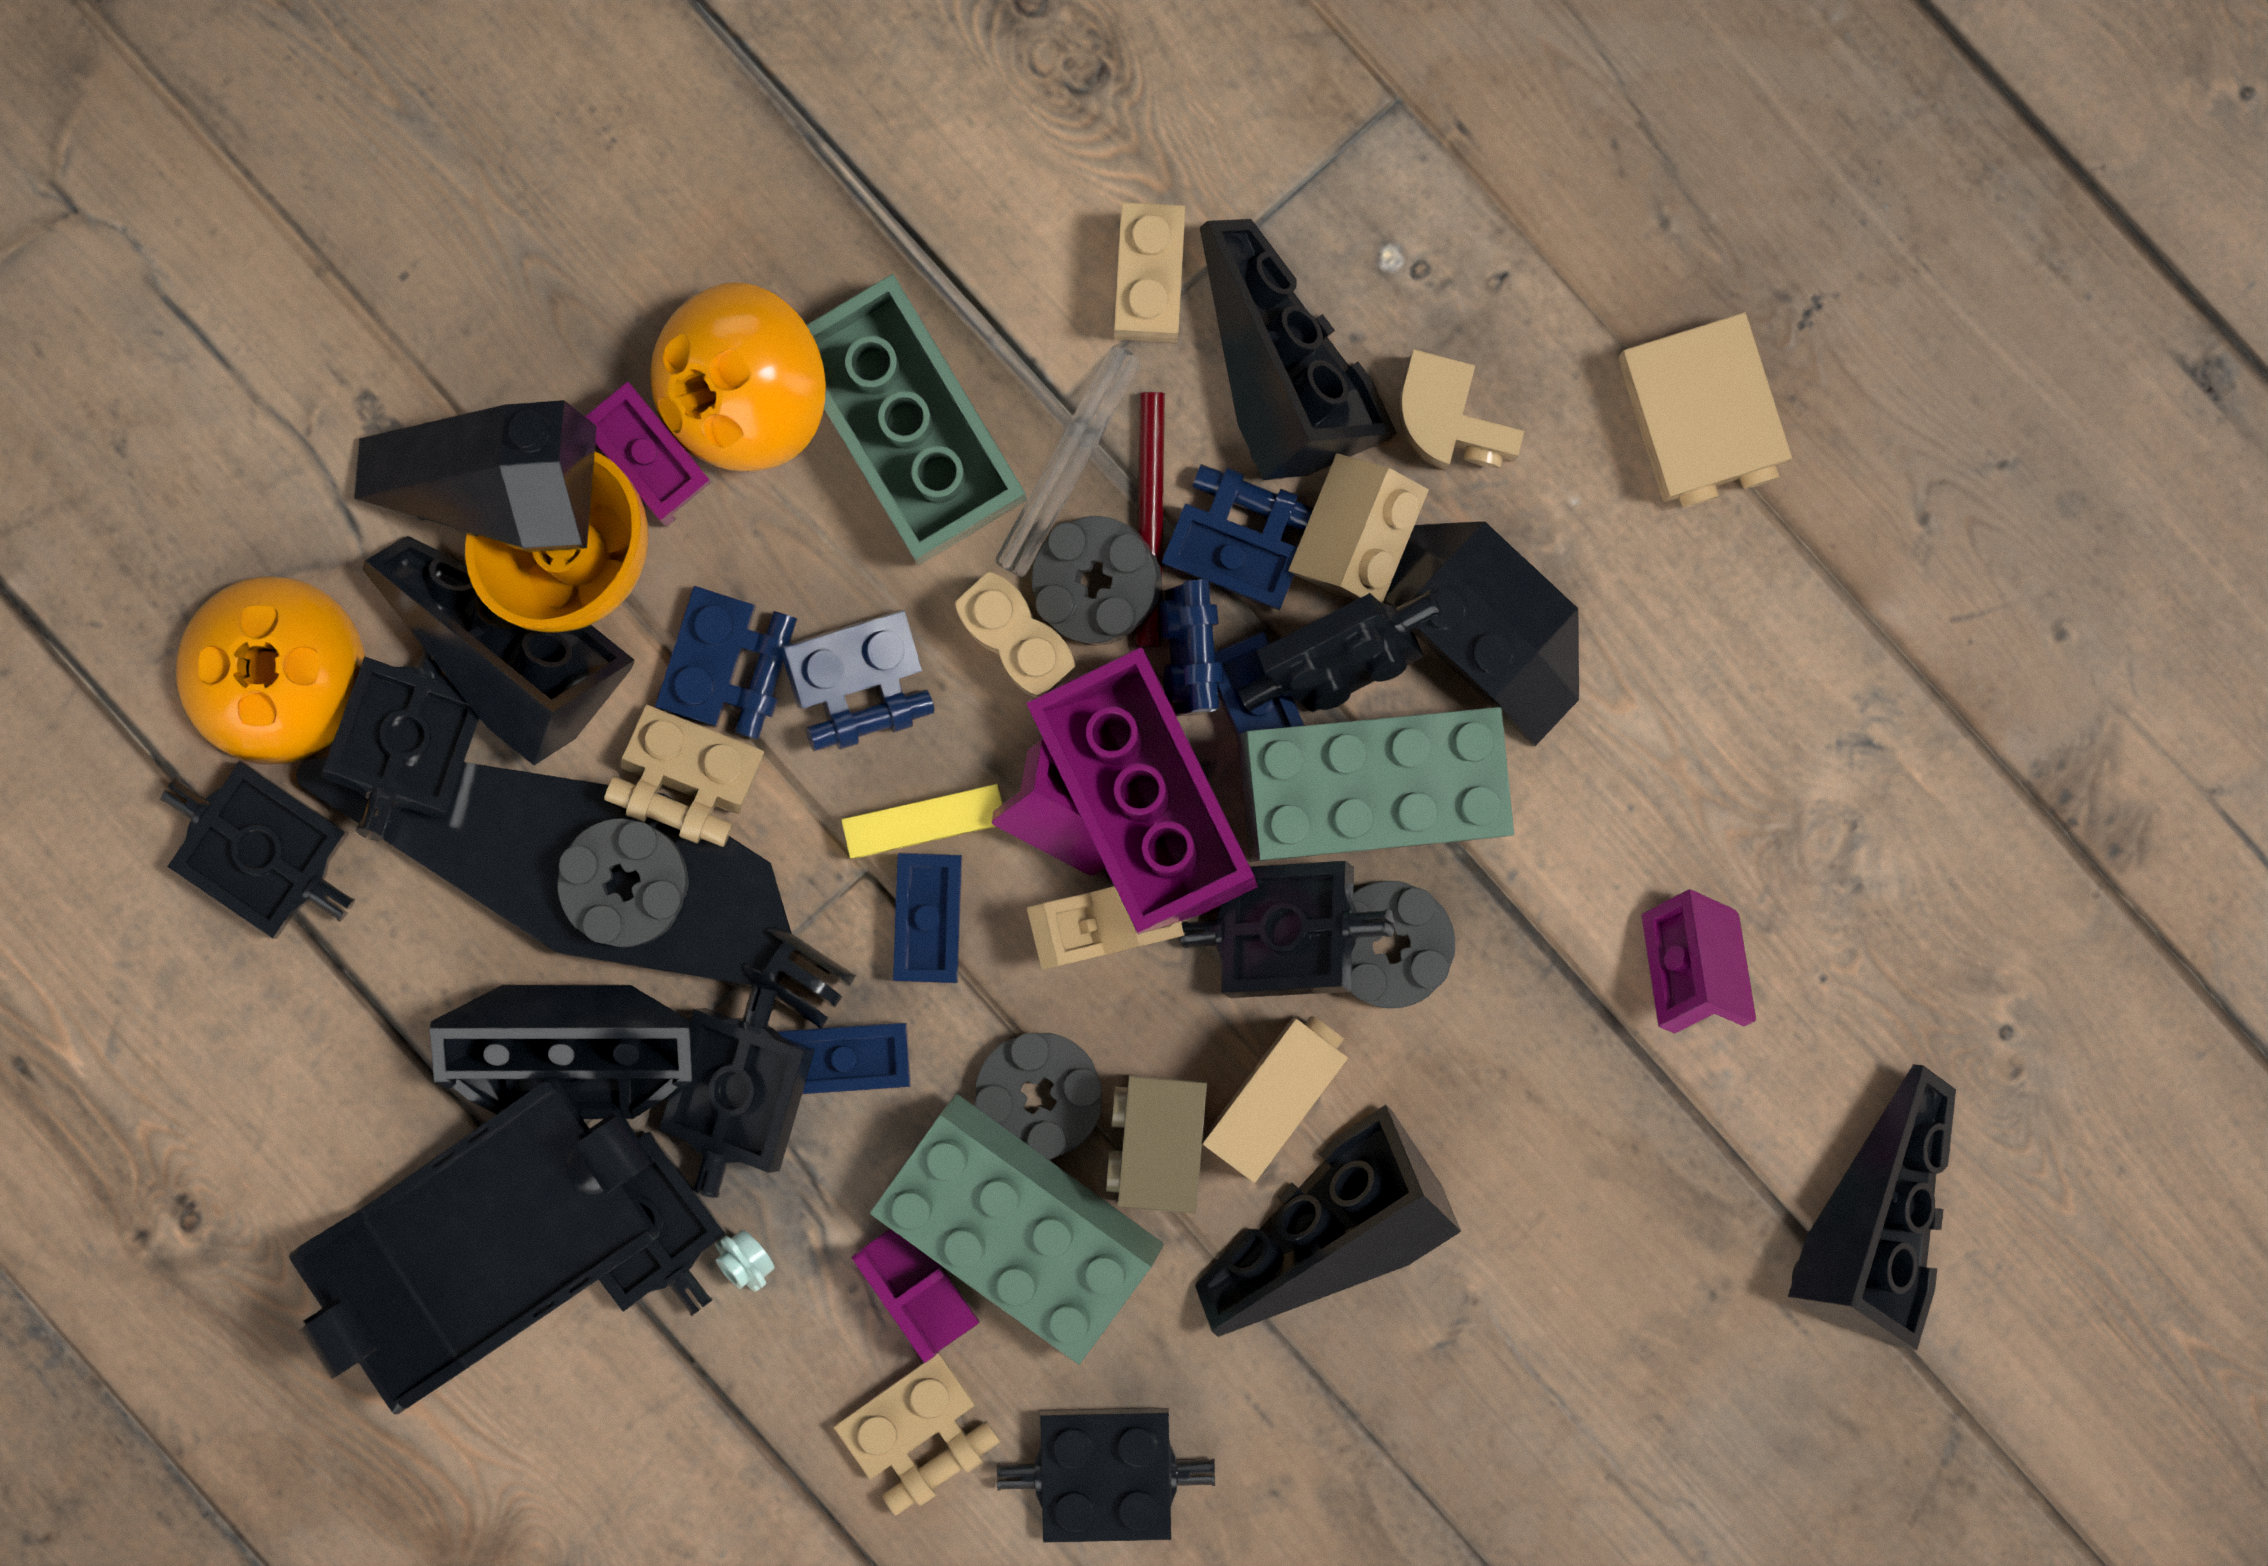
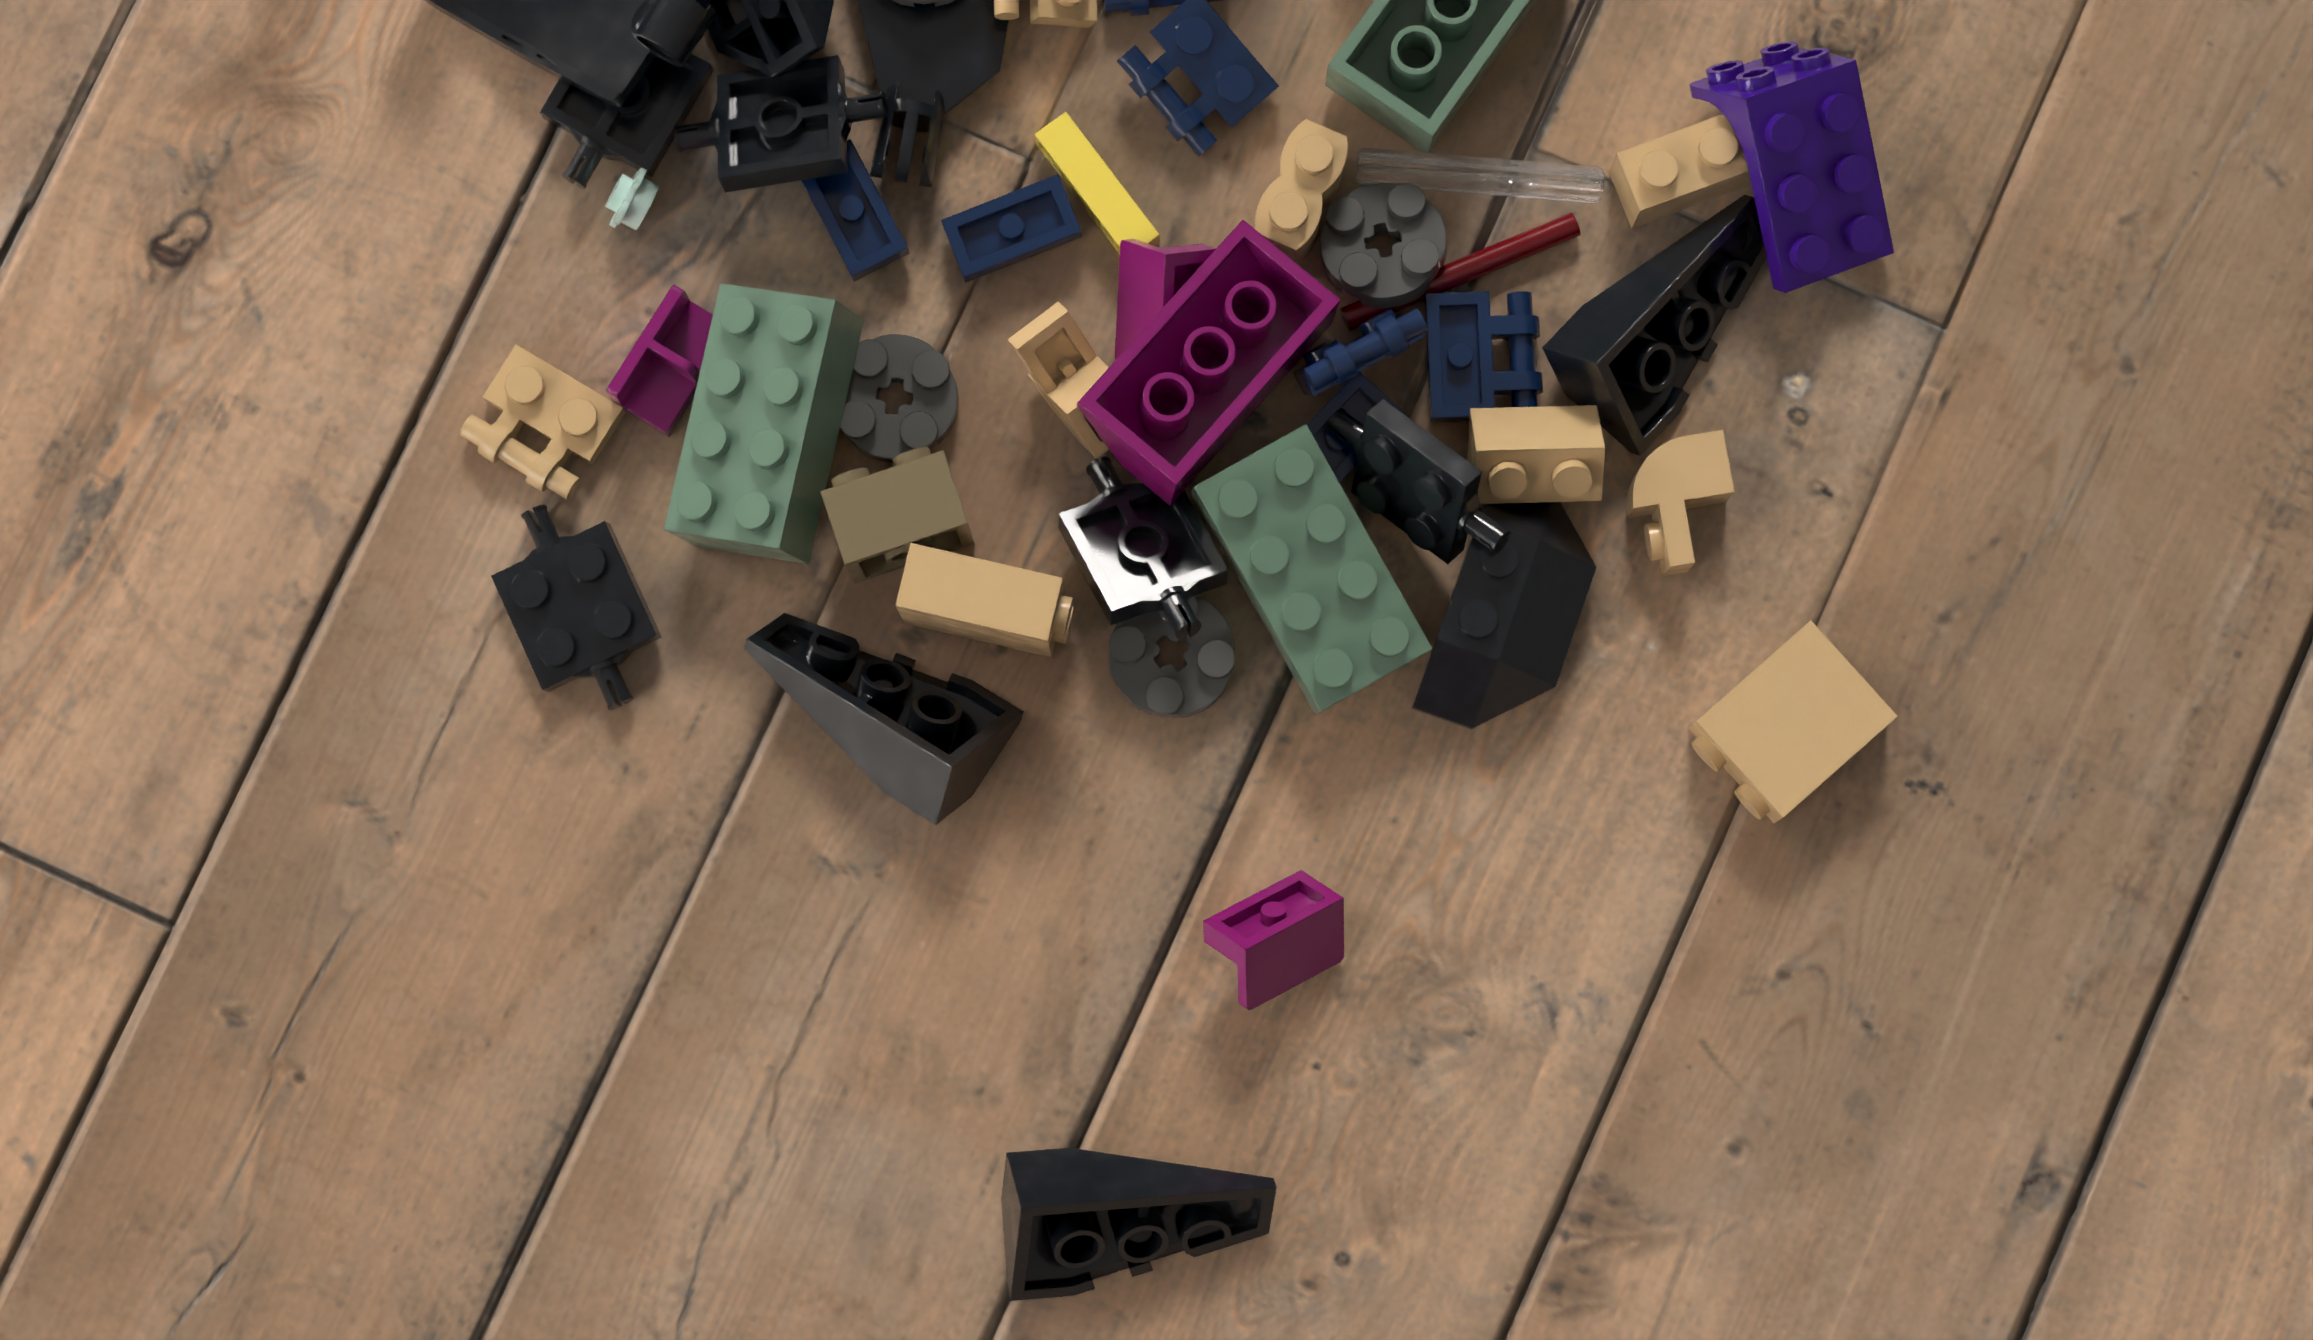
camera: 70 degrees right, 5 degrees down
(1190, 156) = (1805, 158): none -> dark purple bracket

